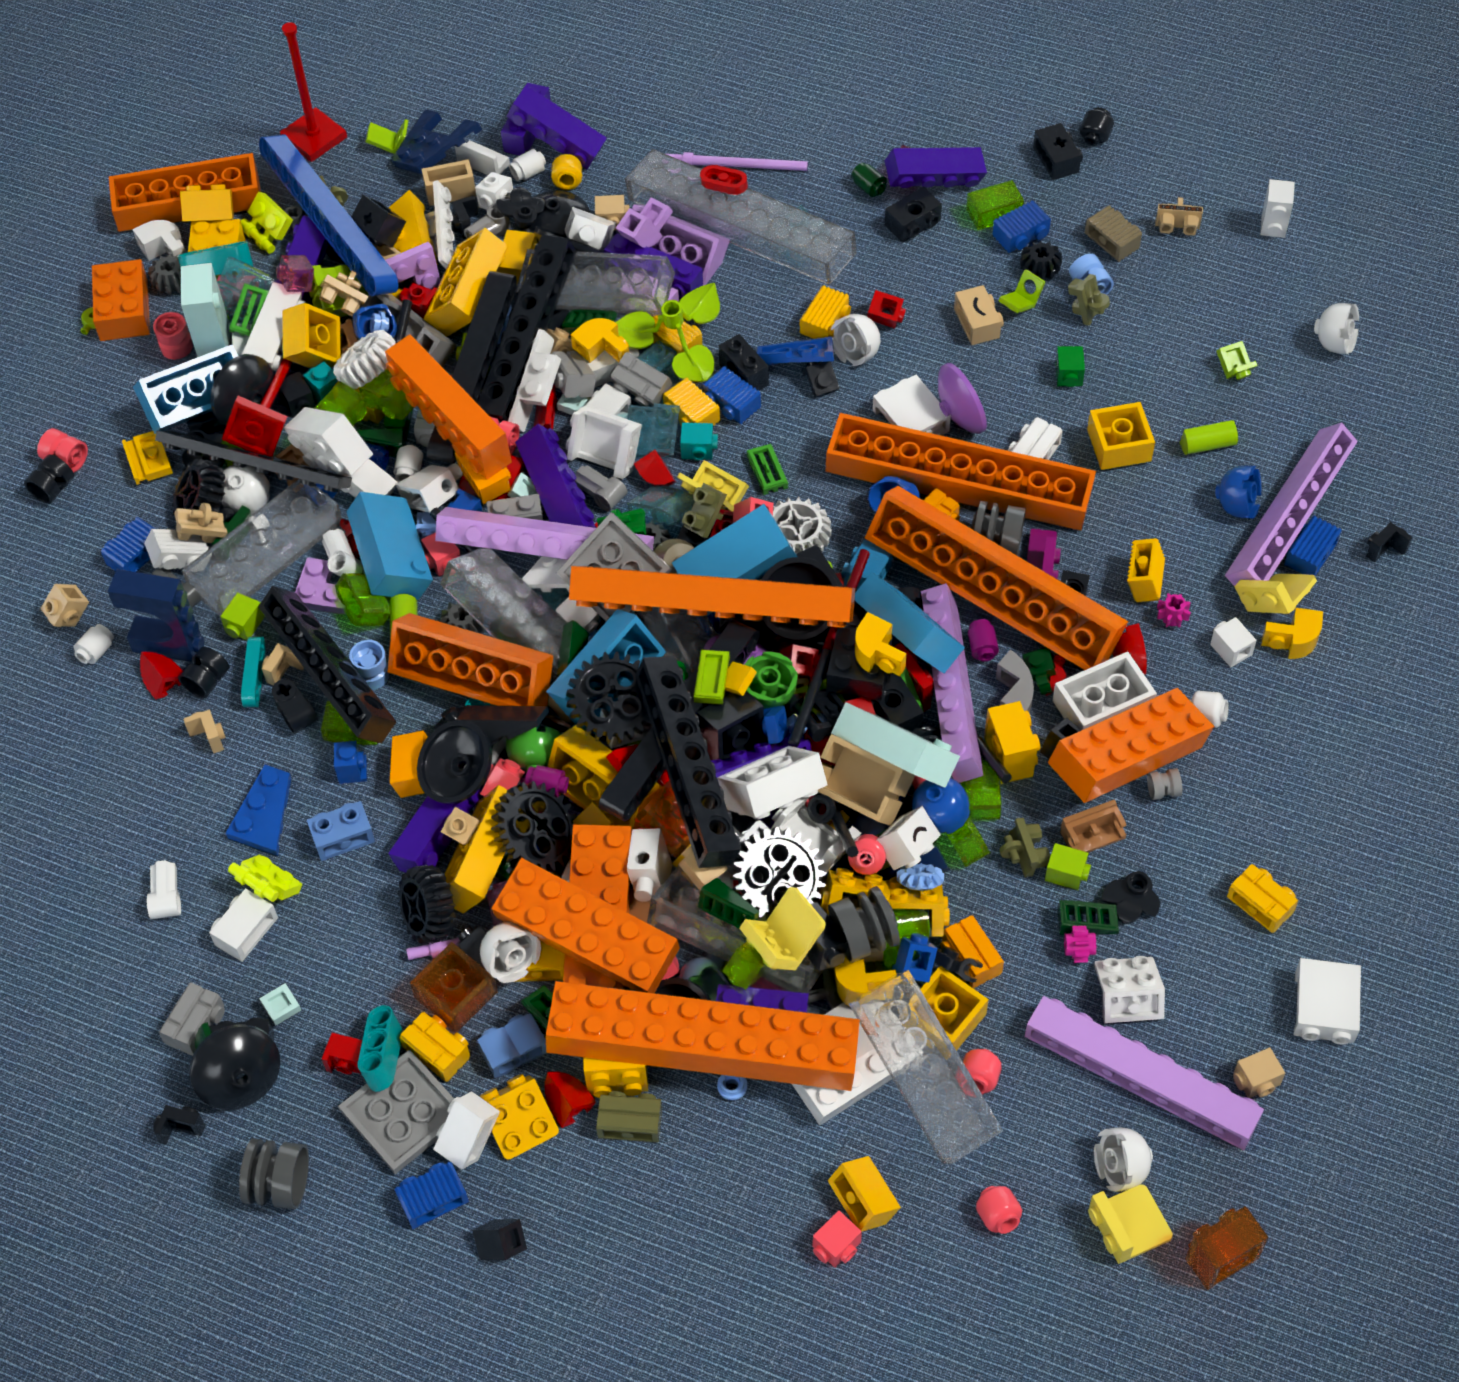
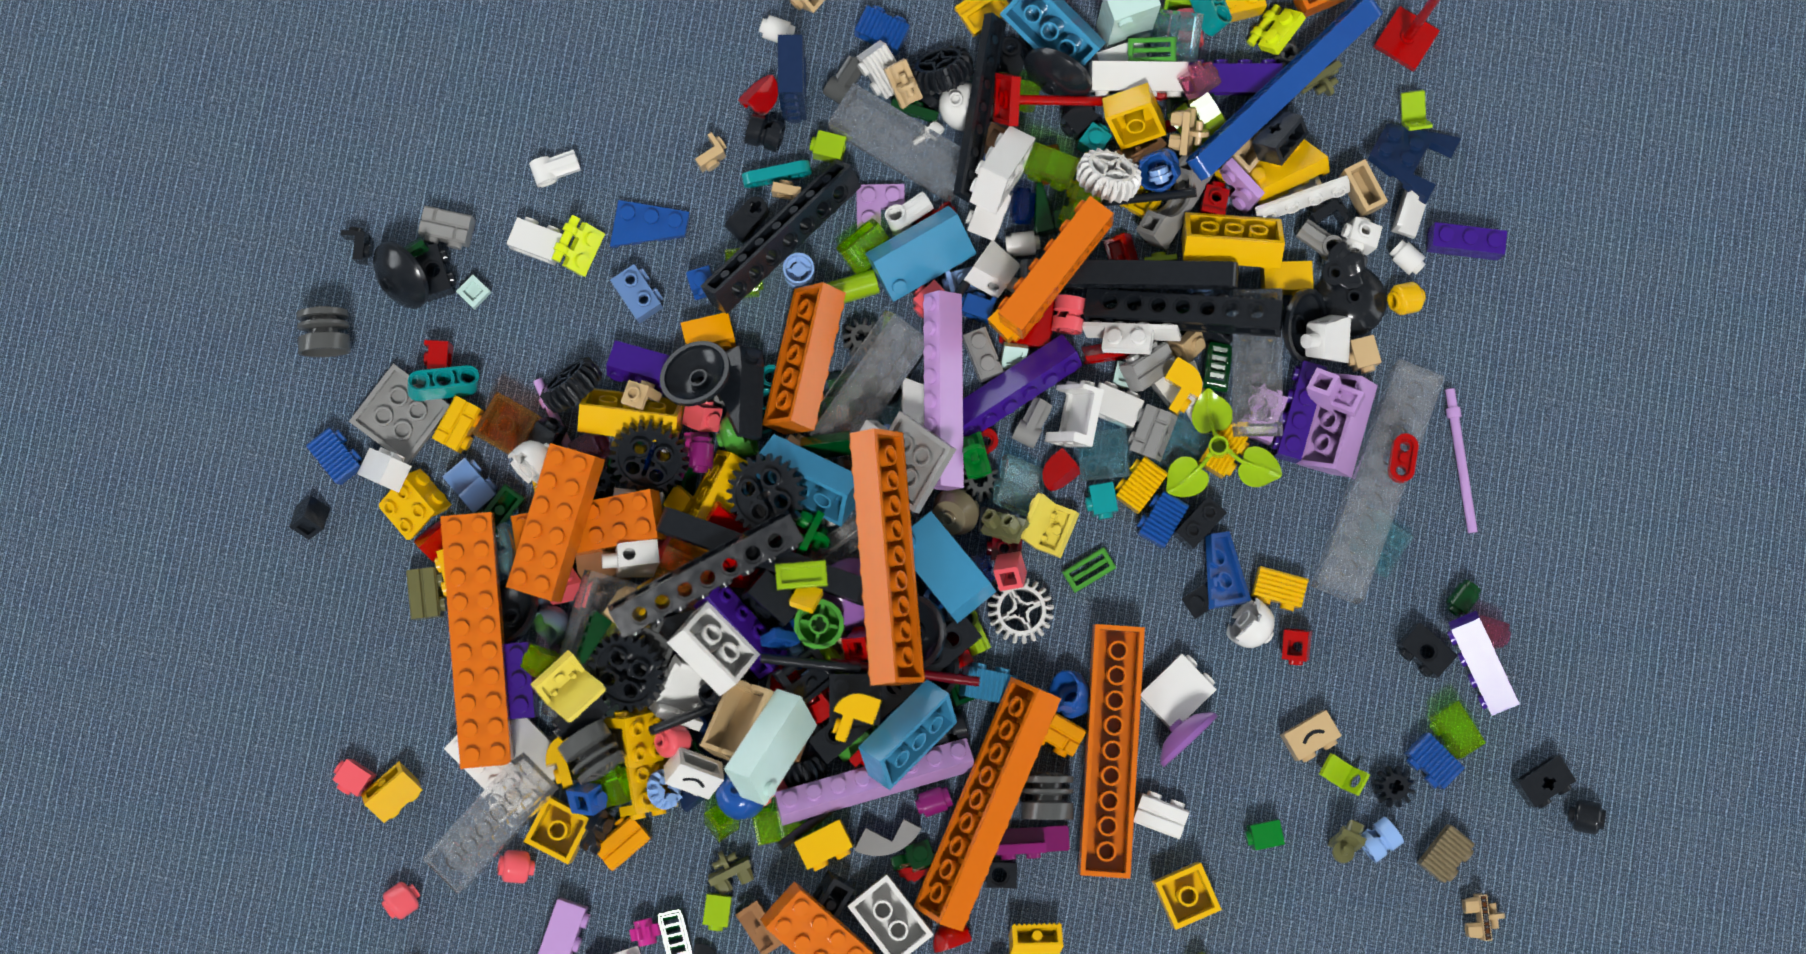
camera: 75 degrees right, 25 degrees up
(556, 126) = (1451, 275): dark purple brick -> none

